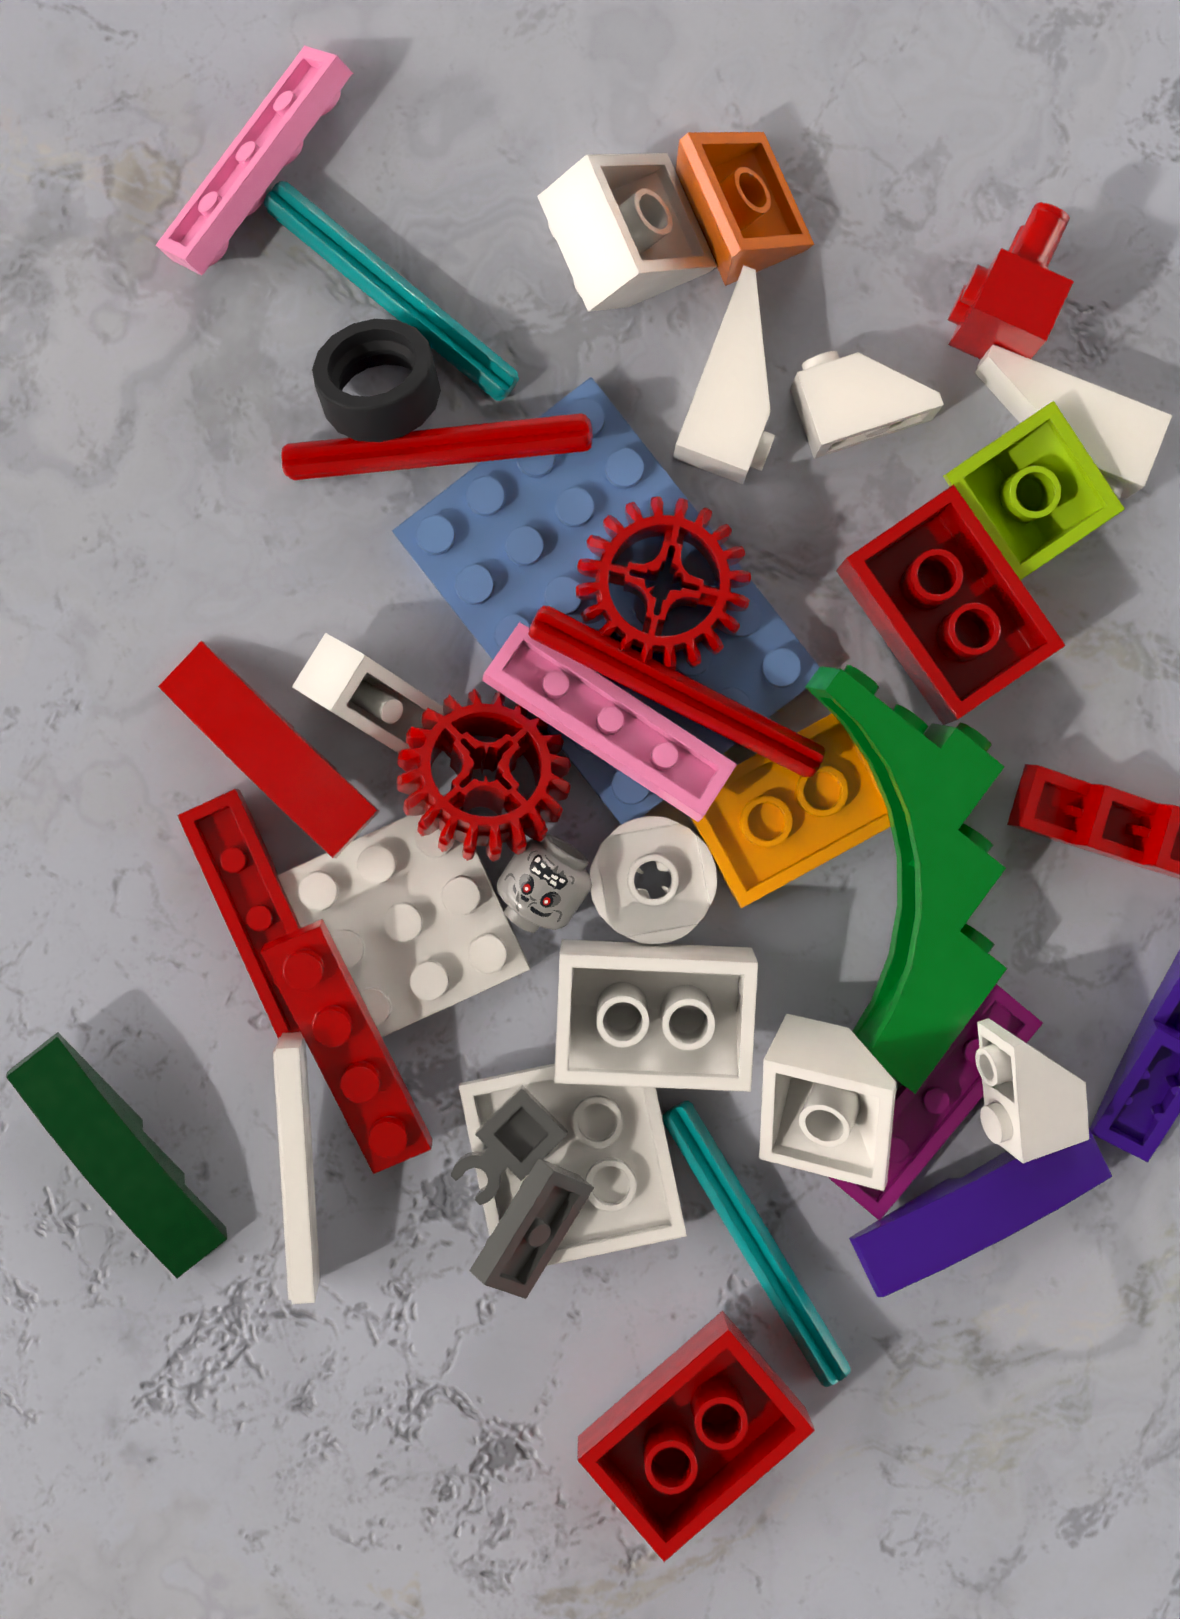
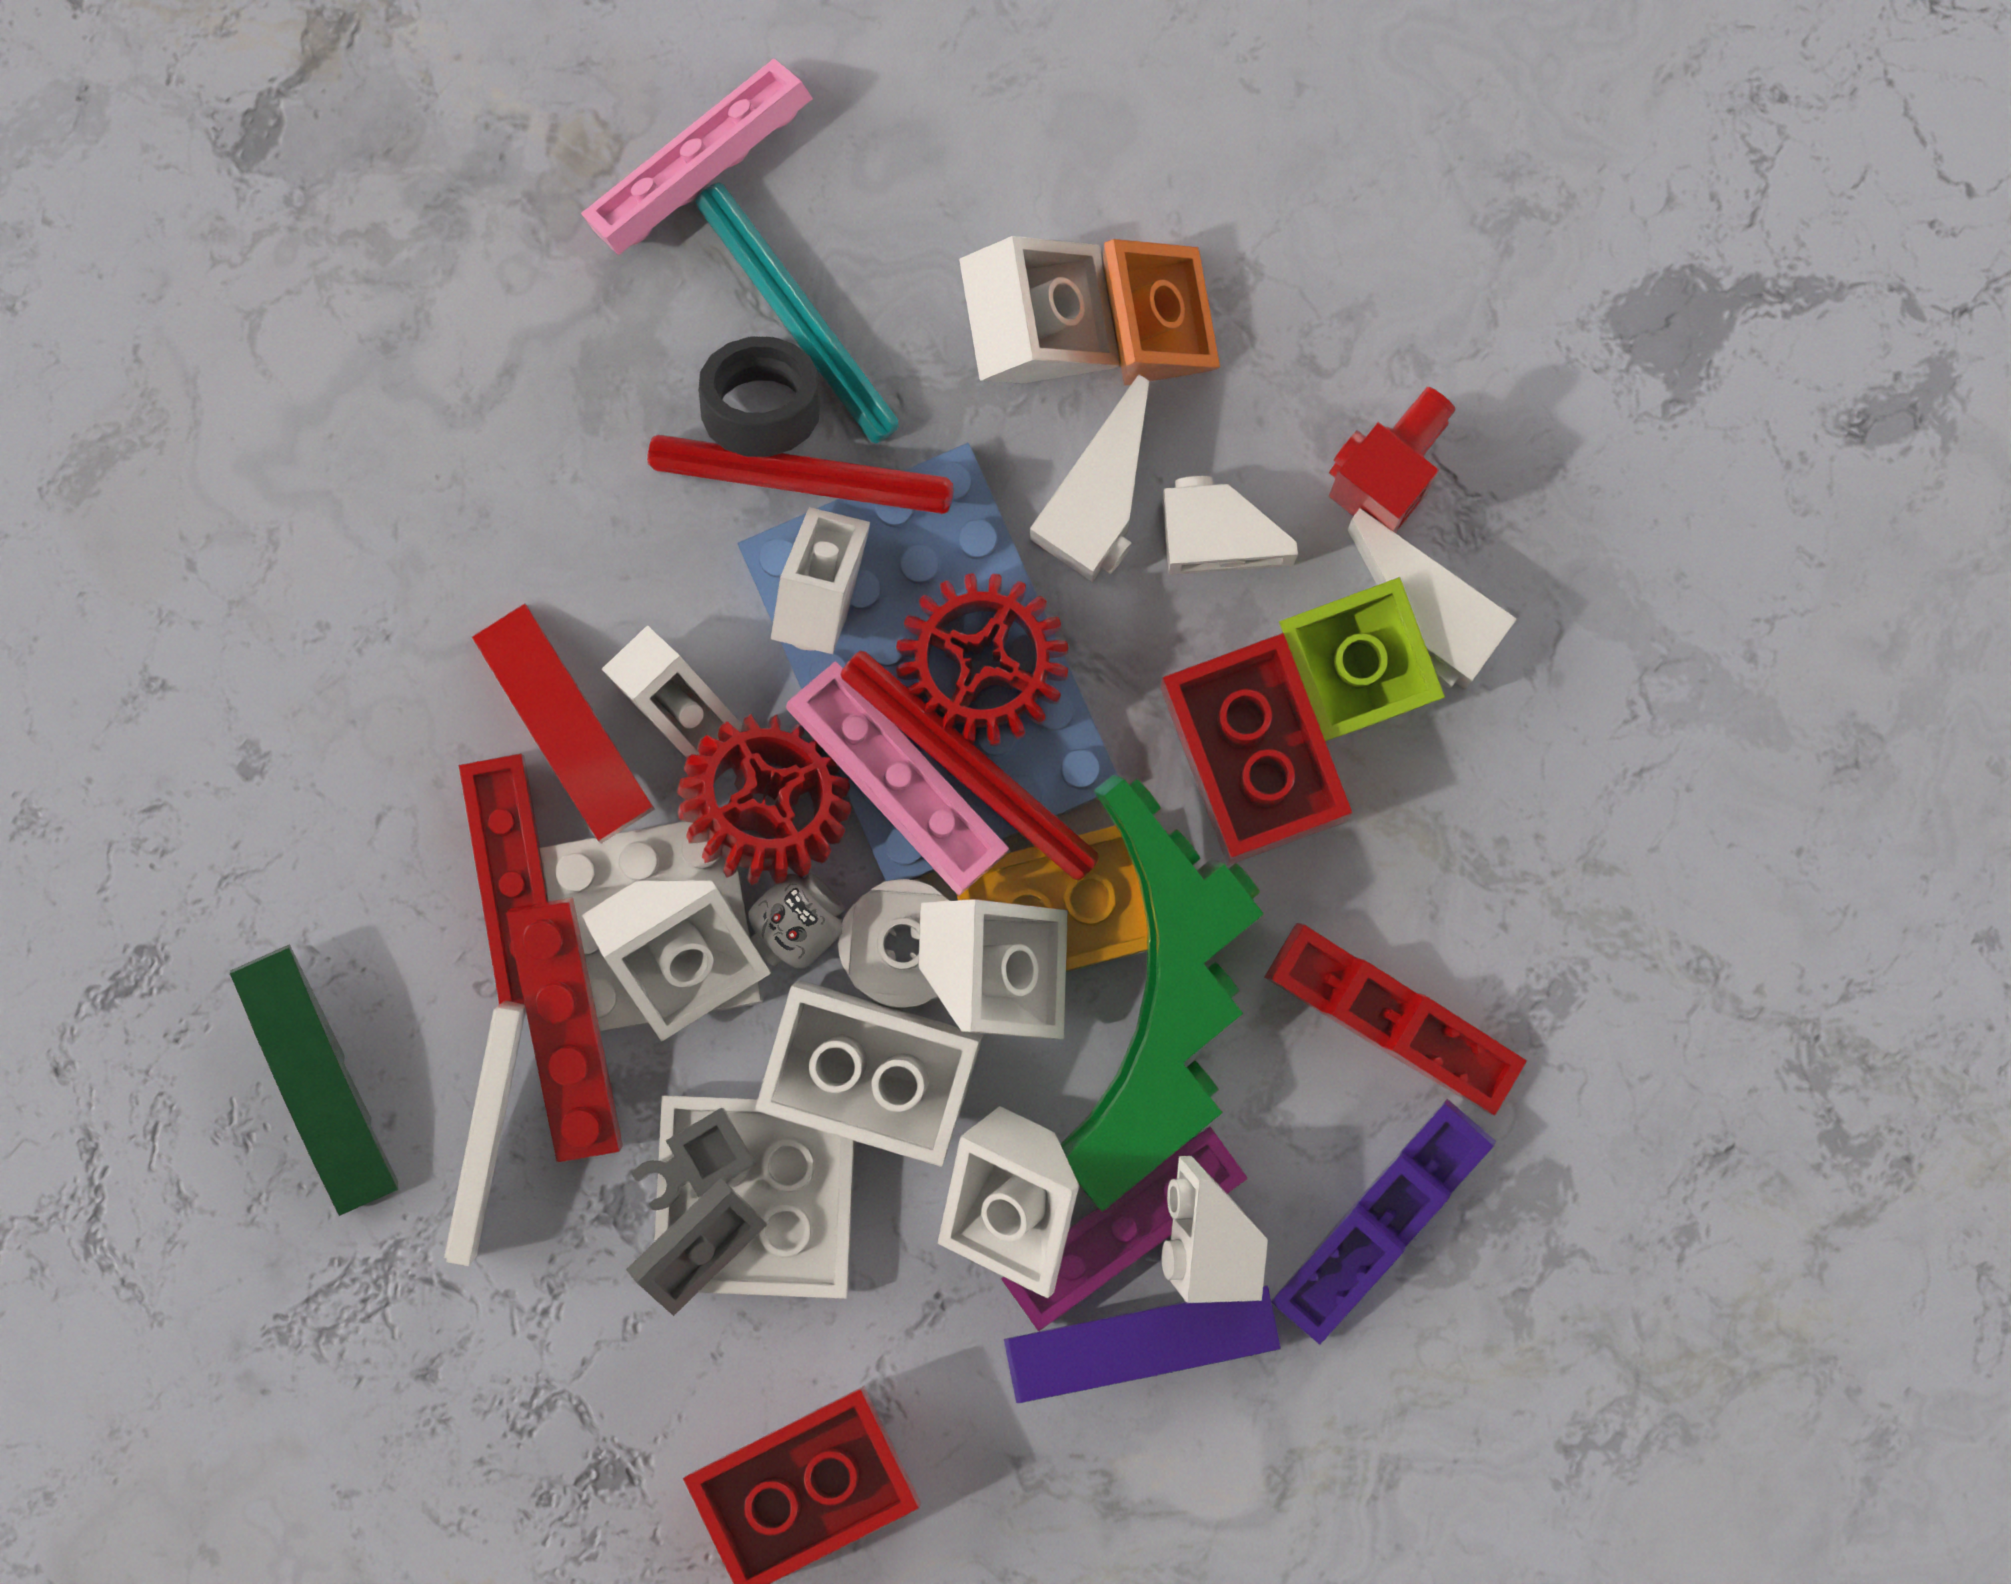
camera: 20 degrees right, 5 degrees down
(434, 945) = (675, 950): none -> white slope
(483, 547) = (819, 580): none -> white slope
(753, 883) = (997, 965): none -> white slope
(756, 1243) = (914, 1327): teal axle -> none

